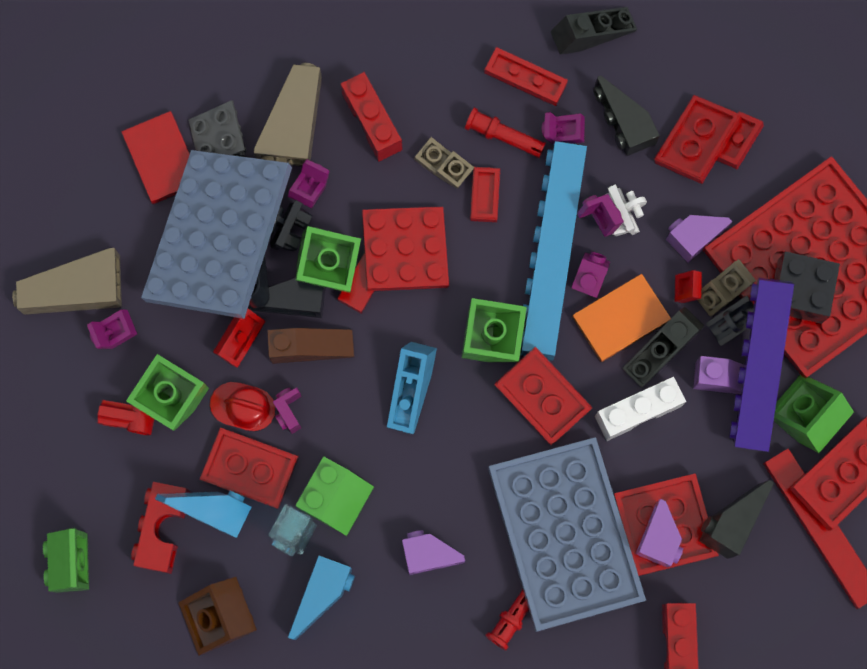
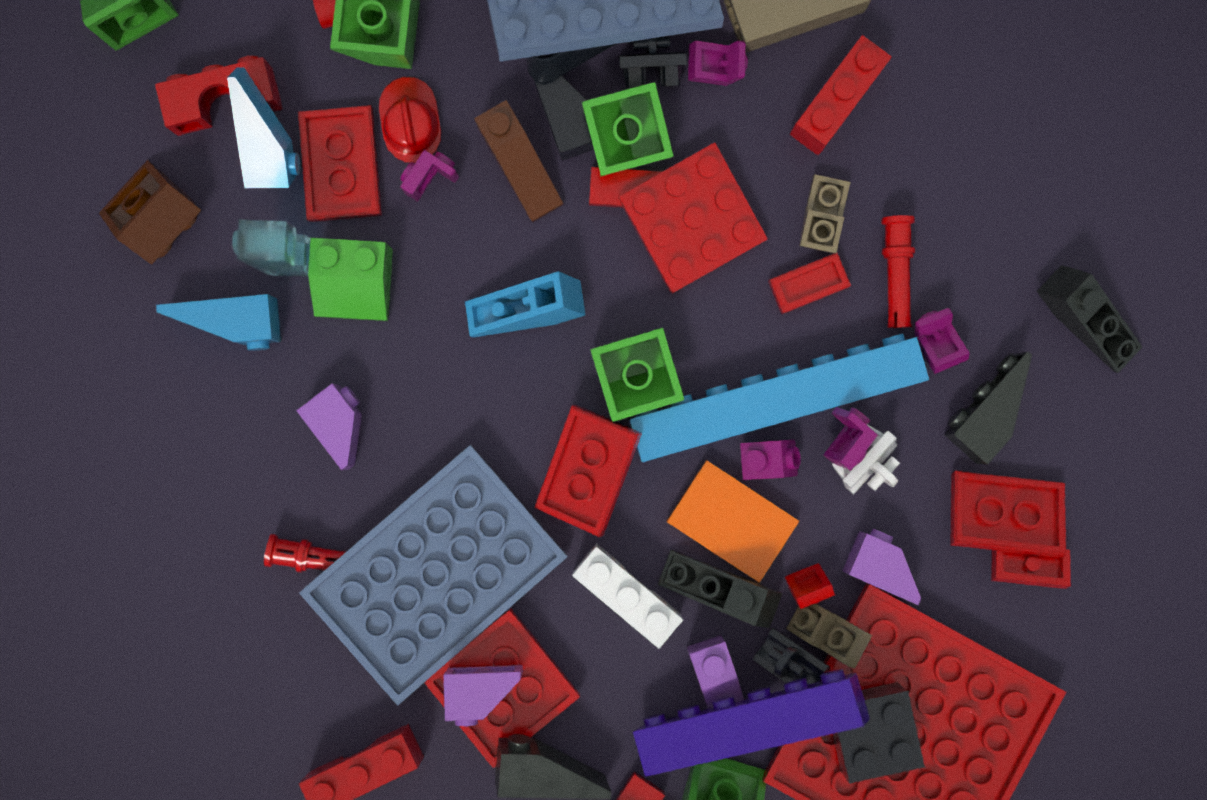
camera: 65 degrees right, 10 degrees up
(239, 338) = (484, 73): red plate -> none
(526, 76) = (986, 262): red plate -> none

